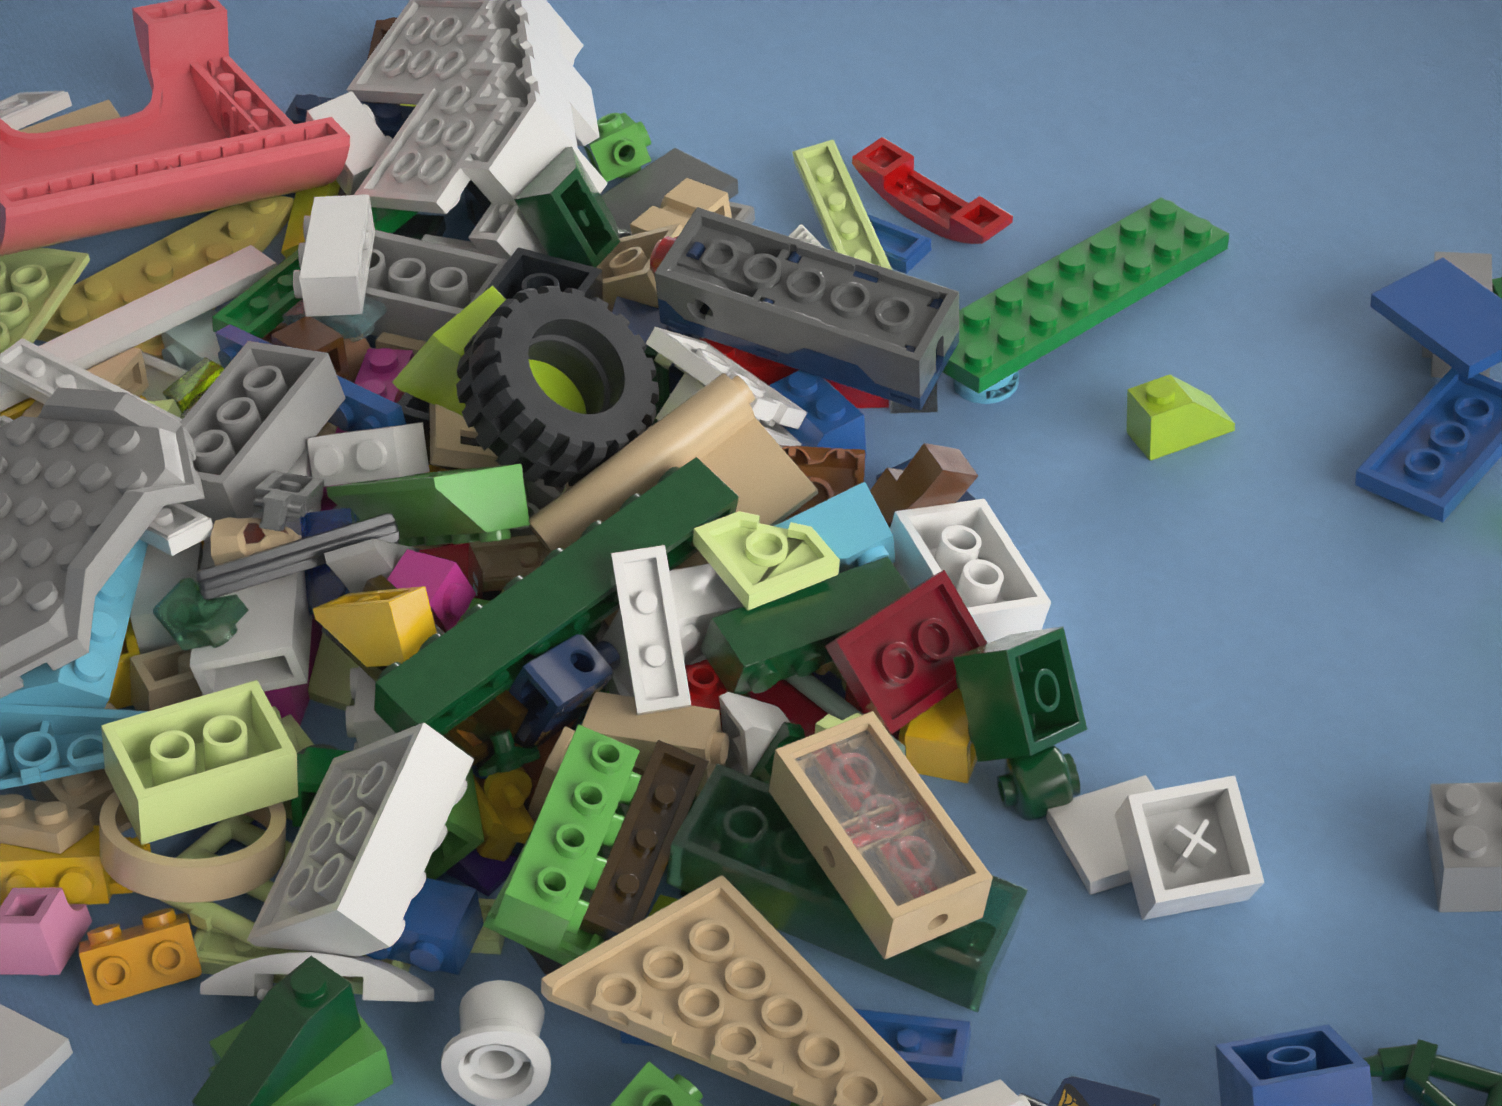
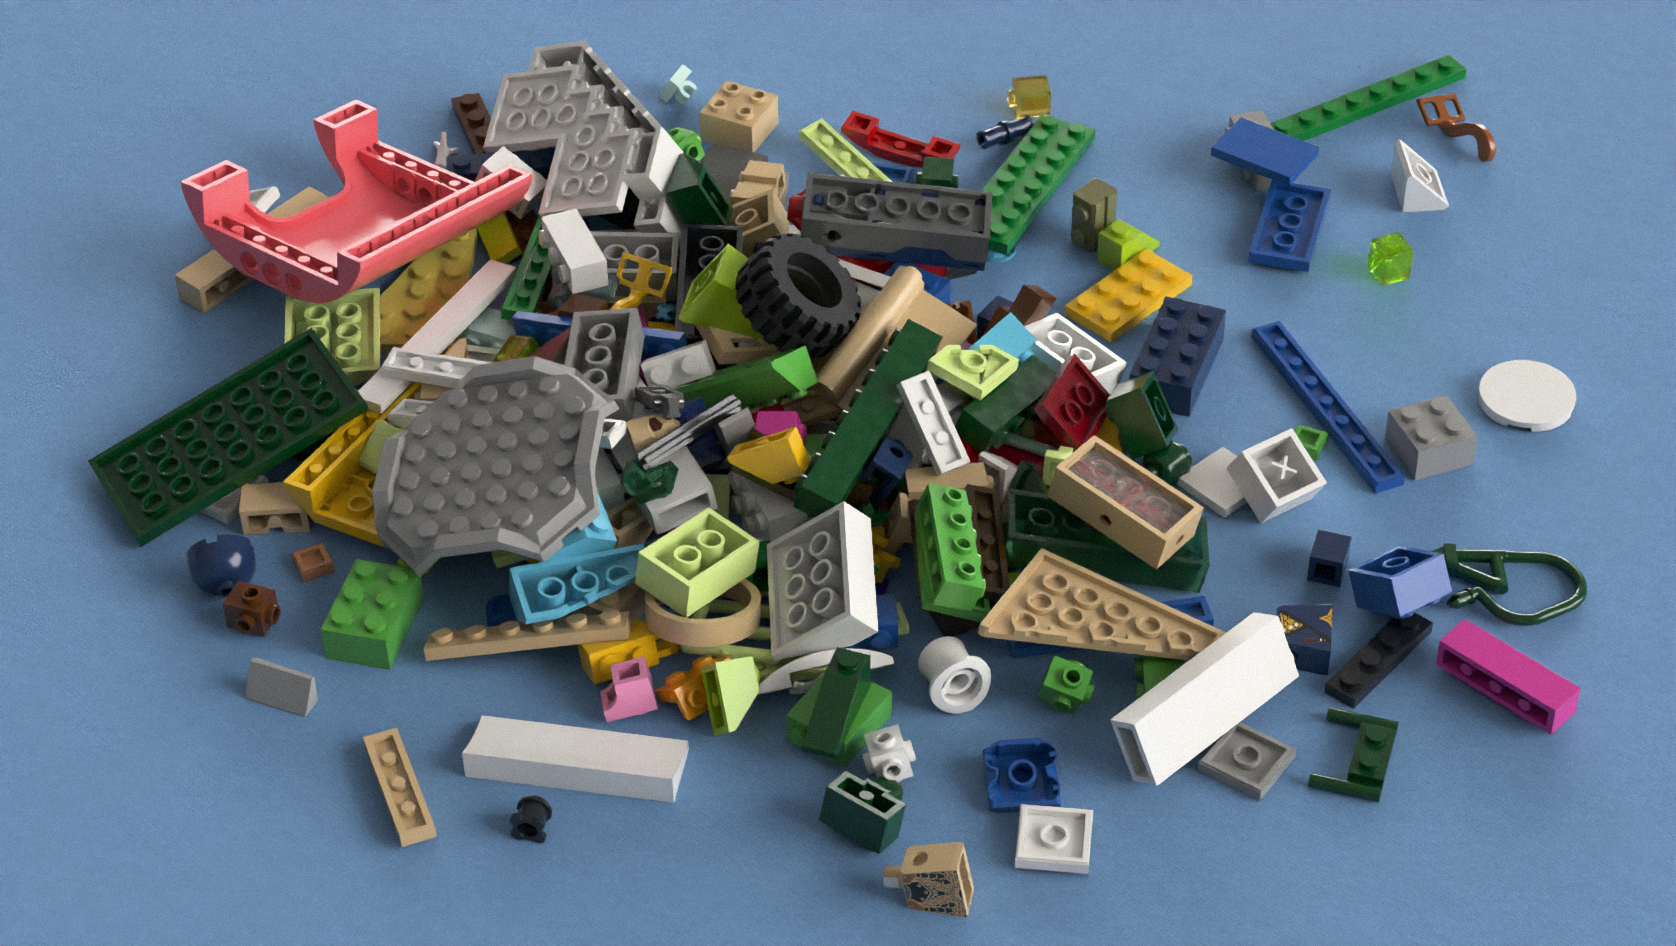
camera: 25 degrees left, 0 degrees up
(158, 976) = (730, 691): none -> lime slope
(322, 87) = (443, 151): none -> white bar
(405, 333) = (639, 287): none -> yellow piece
(676, 54) = (678, 86): none -> light aqua tile
(728, 117) = (739, 117): none -> tan brick
(952, 259) = (938, 173): none -> dark green brick
(1092, 211) = (1004, 132): none -> dark blue pin
(1135, 352) = (1092, 212): none -> olive brick
(1140, 496) = (1128, 295): none -> yellow plate
(1154, 608) = (1181, 350): none -> dark blue brick
(1157, 166) = (1030, 96): none -> clear yellow brick
(1211, 1010) = (1329, 558): none -> dark blue brick
(1290, 802) = (1312, 440): none -> bright green tile
(1357, 756) = (1328, 407): none -> blue tile

